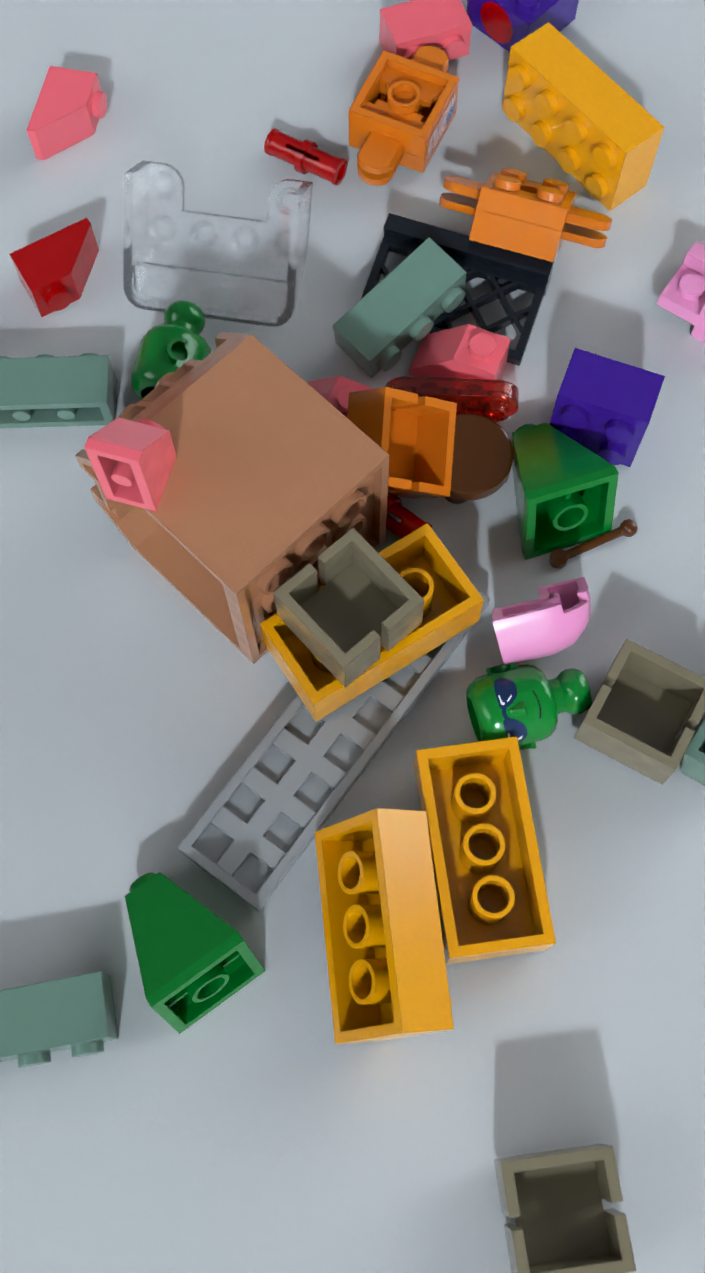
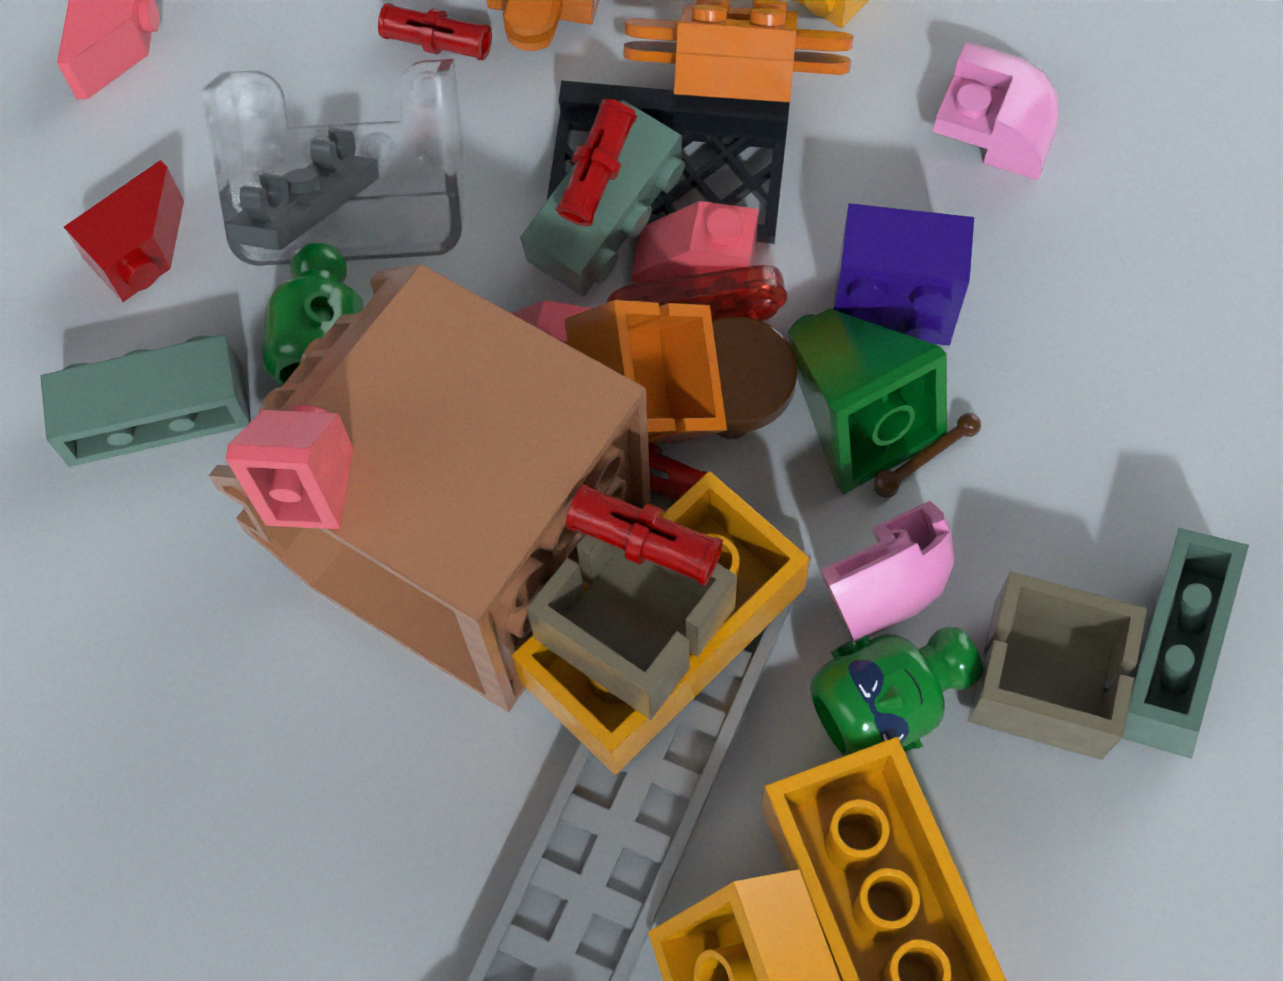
camera: 10 degrees left, 5 degrees down
(183, 264) = (302, 197): none -> dark grey plate
(365, 557) = (644, 534): none -> red pin
(399, 281) = (596, 162): none -> red pin

